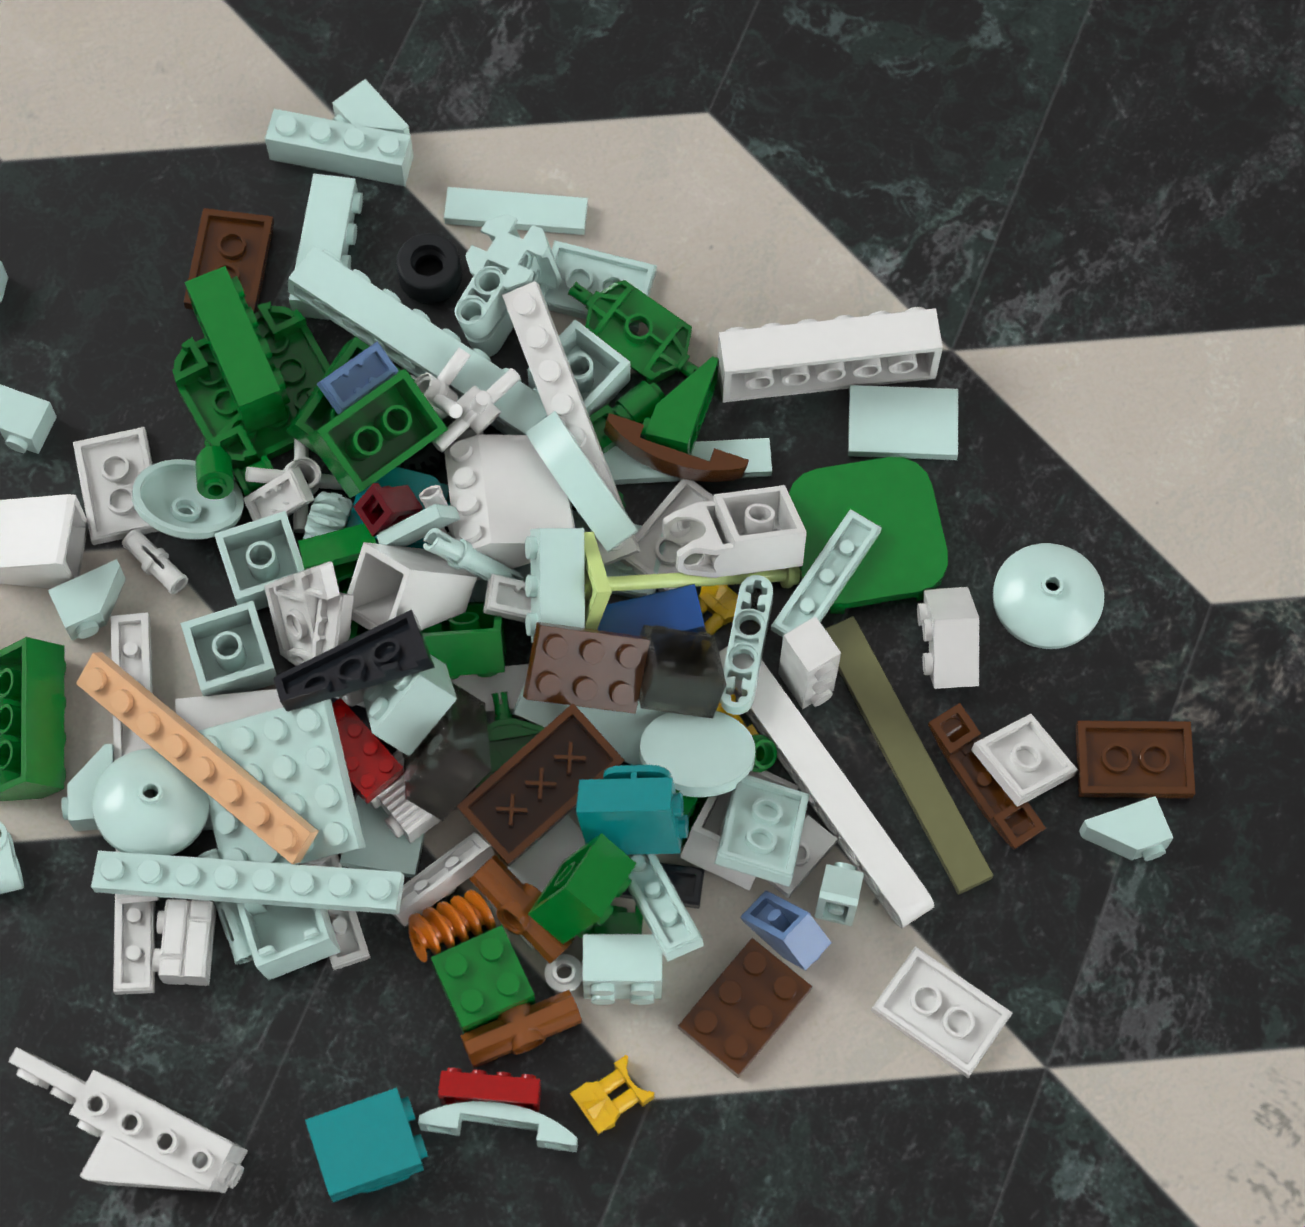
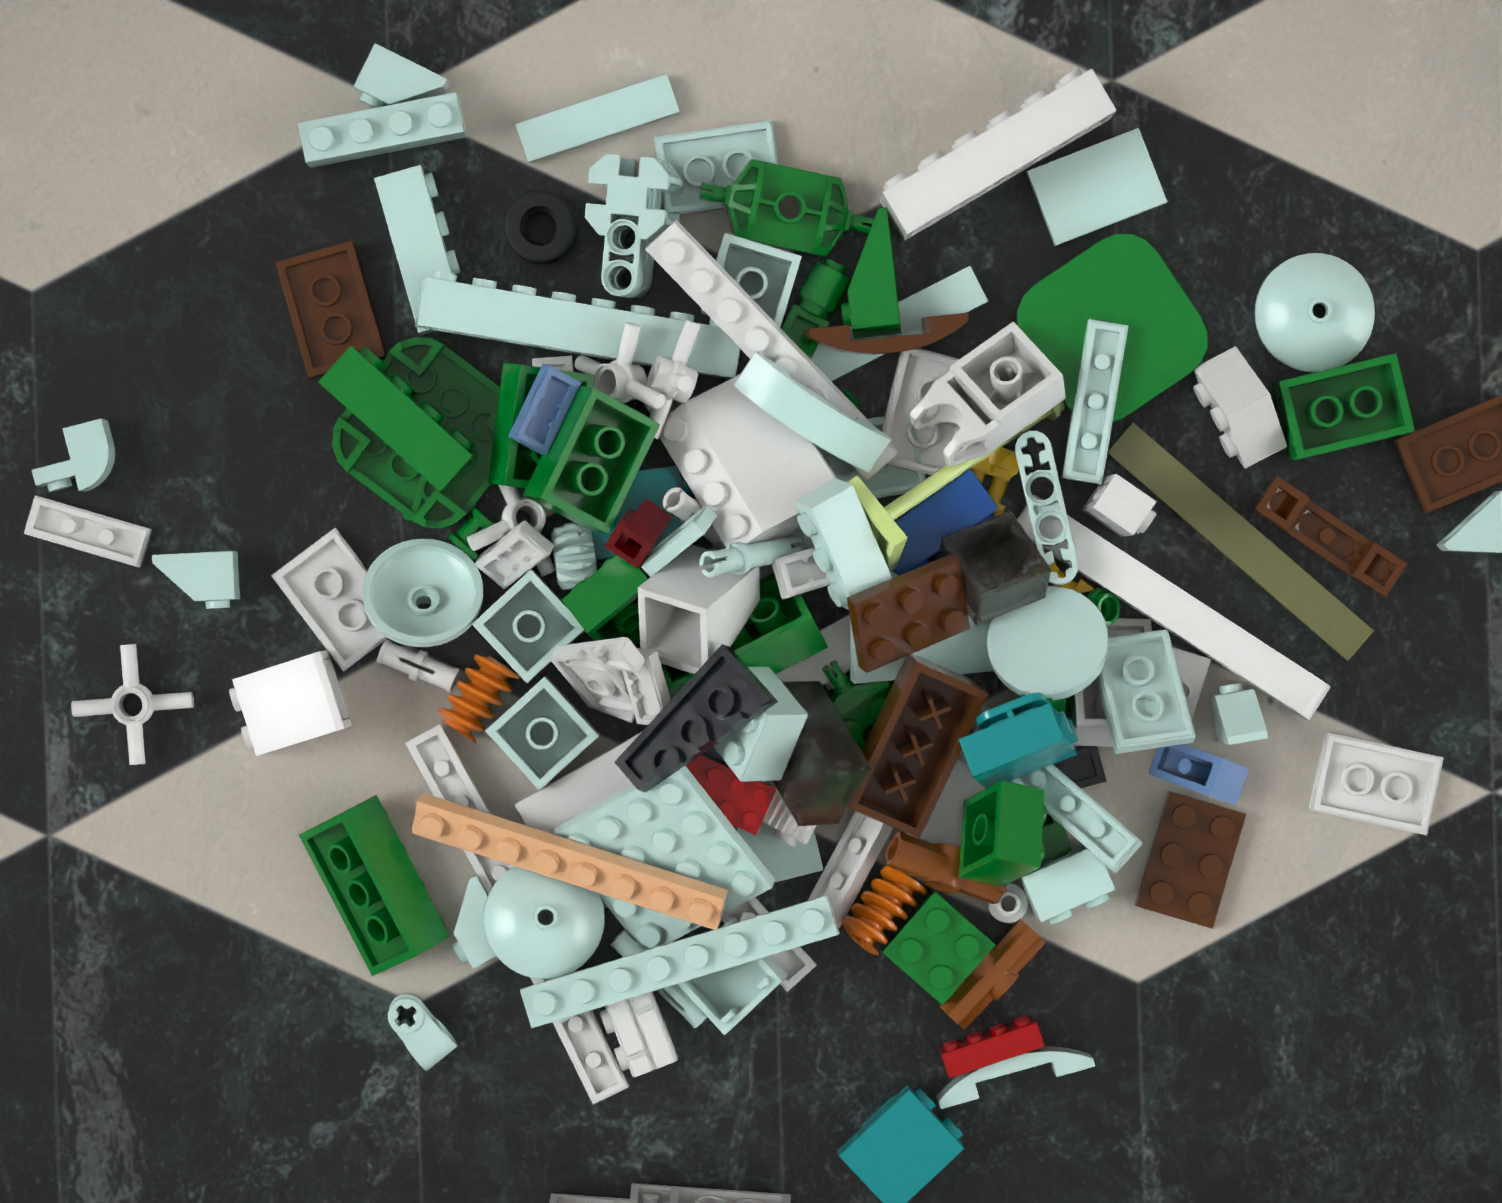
camera: 20 degrees left, 20 degrees up
(88, 599) = (373, 737): light aqua slope -> none
(190, 601) = (477, 696): none -> orange piece
(214, 472) = (436, 555): green brick -> none
(596, 1104) = (1093, 1013): yellow piece -> none
(1024, 759) = (1359, 502): white tile -> none
(1041, 672) = (1343, 407): none -> green brick

